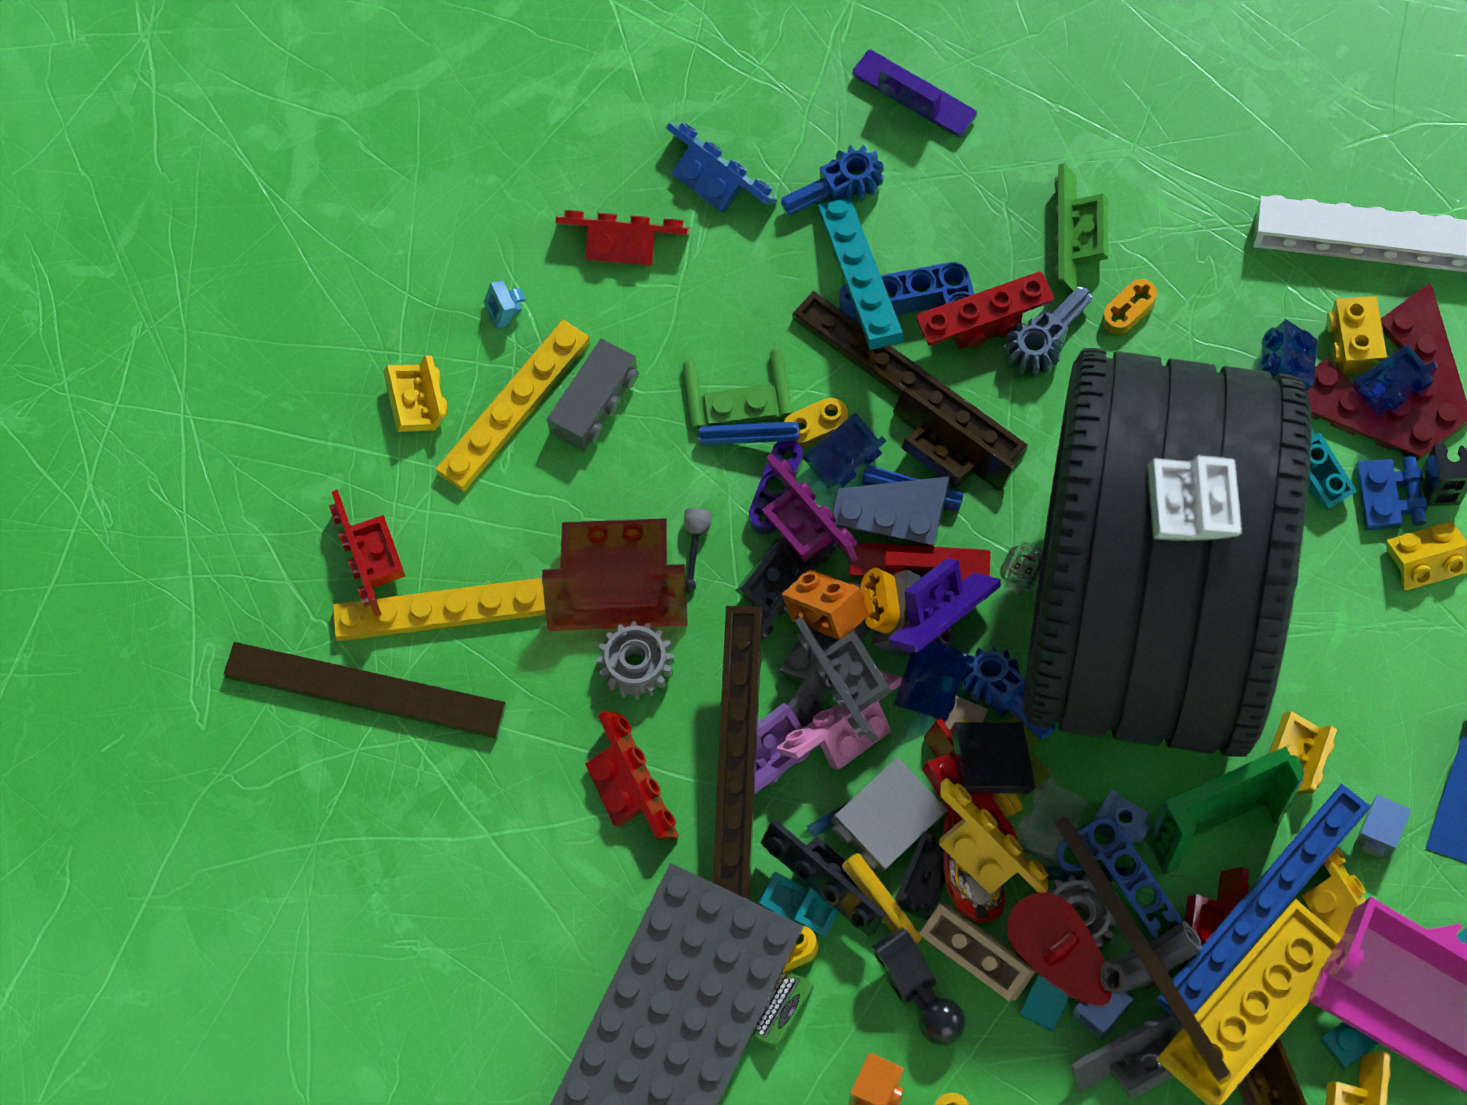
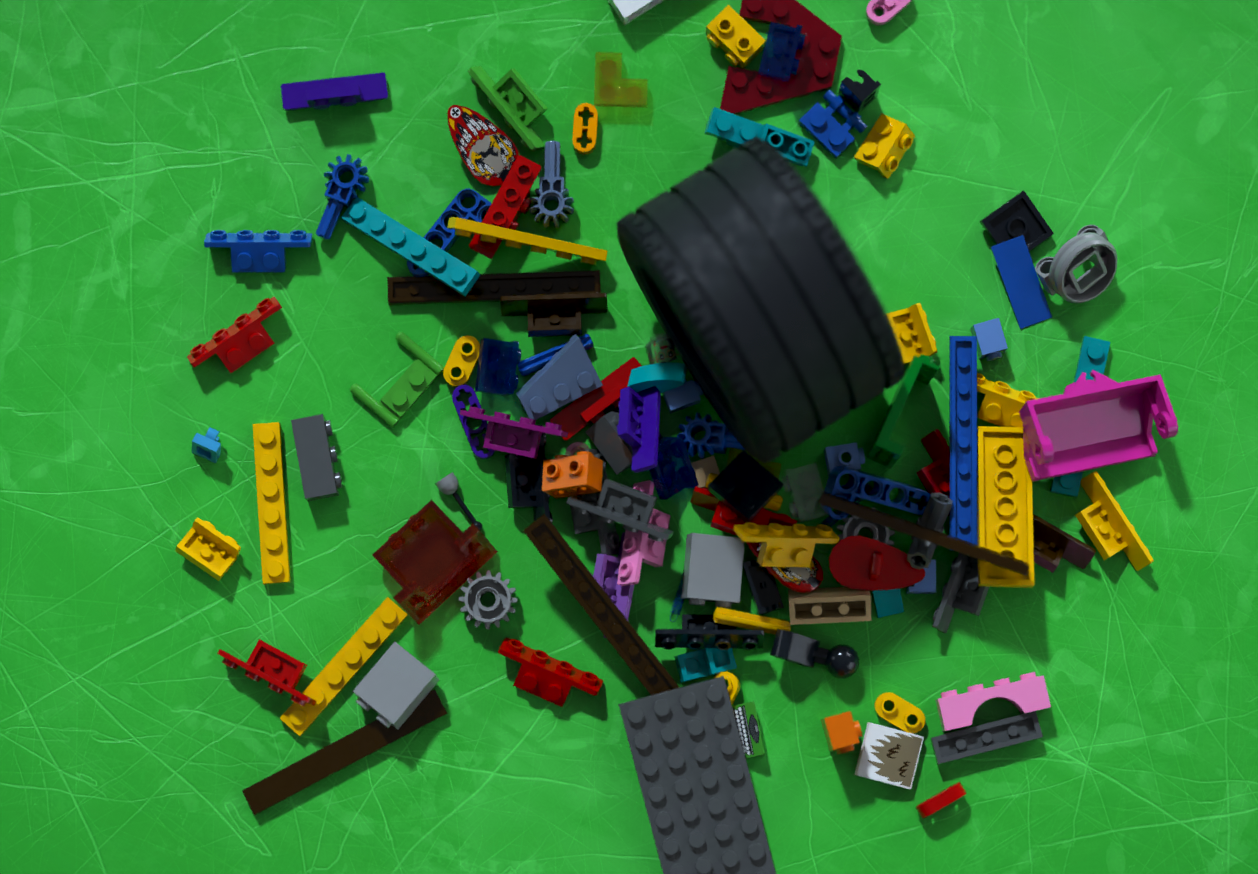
camera: 45 degrees left, 15 degrees up
(468, 664) = (395, 686): none -> light grey brick
(749, 433) = (430, 403): blue axle -> none
(880, 600) = (602, 445): light orange beam -> none
(987, 361) = (516, 239): none -> yellow plate
(1000, 582) = (662, 375): none -> teal slope
(1006, 624) = (683, 396): none -> medium blue brick
(1012, 237) = (481, 145): none -> shield
(1190, 291) = (614, 90): none -> clear yellow plate
(1194, 499) = (782, 288): white slope -> none
(1289, 352) = (707, 86): clear blue bracket -> none

